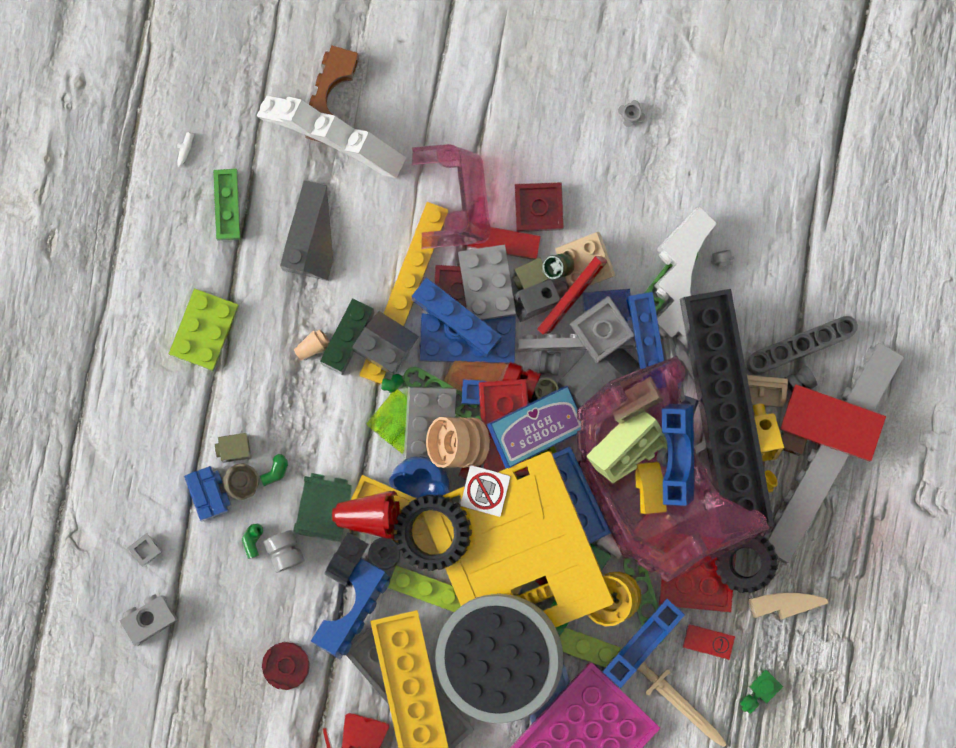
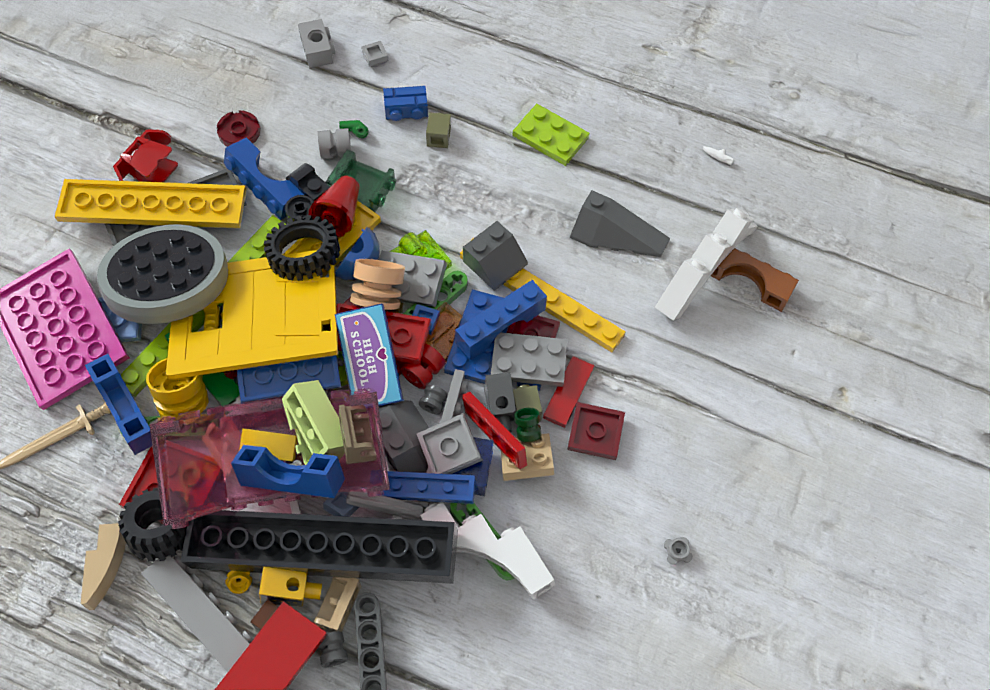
camera: 105 degrees right, 20 degrees down
(226, 204) = (660, 172): bright green plate -> none
(241, 481) = (406, 125): dark tan hair -> none
(277, 472) = (409, 159): green arm -> none
(313, 344) = (513, 209): light nougat cone -> none
(349, 329) = (530, 241): dark green arch -> none
(392, 384) = (455, 257): green arm -> none
(471, 223) = (620, 363): clear pink windscreen -> none
(485, 490) = (322, 295): sticker -> none
(545, 387) = (409, 384): olive wheel -> none
(708, 641) = (101, 478): red tile -> none
(722, 258) = (494, 602): light grey plate -> none
(764, 687) = (32, 520): green plate -> none

